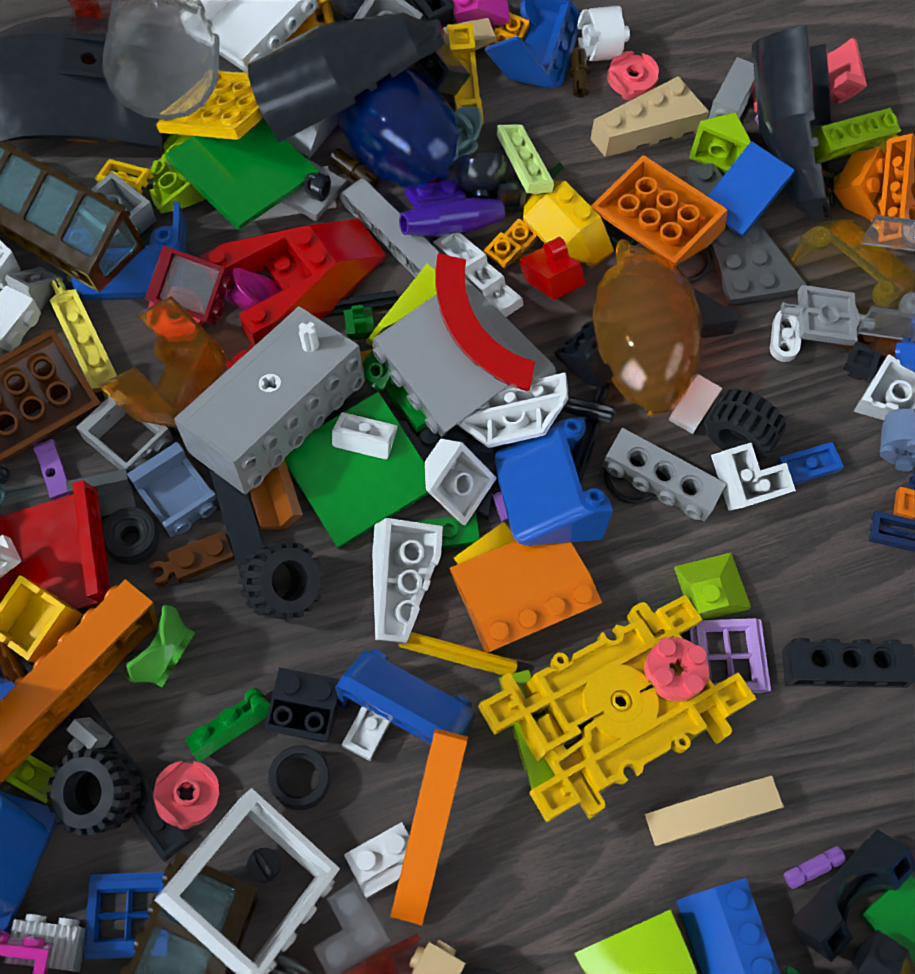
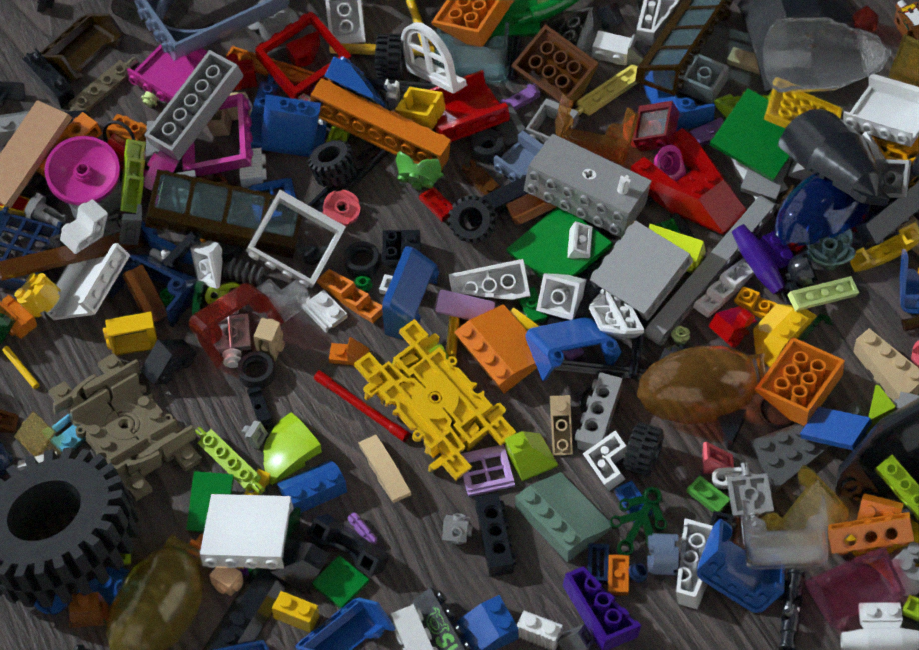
camera: 85 degrees right, 10 degrees down
(87, 735) = (363, 153): light grey tile -> none
(91, 161) = (743, 59): none -> tan plate
(123, 168) = (735, 86): yellow tile -> none
(203, 230) = (706, 132): none -> medium lavender plate
(221, 634) = (436, 203): none -> red plate
(228, 724) = (382, 217): green plate -> none
(320, 186) = (759, 181): black tile -> none
(353, 790) = (364, 287): none -> green plate
(367, 808) = (350, 296): none -> orange slope
(429, 826) = (341, 313): orange tile -> none
(438, 630) = (461, 305): none -> lavender slope
(469, 333) = (655, 267): red tile -> none
(479, 833) = (347, 353): none -> orange slope
(532, 875) = (395, 429): none -> red piece
(549, 342) = (680, 338): none -> yellowish green plate
(667, 531) = (561, 425): none -> tan slope
(689, 657) = (454, 432): coral plate -> none
(695, 404) = (672, 432): white tile -> none
(757, 349) = (715, 458): none -> coral slope
(810, 369) = (708, 495): none -> bright green plate
(821, 438) = (640, 517): none -> dark green plant
(822, 561) = (562, 515): none -> sand green slope
(838, 717) = (457, 528): none -> light grey brick

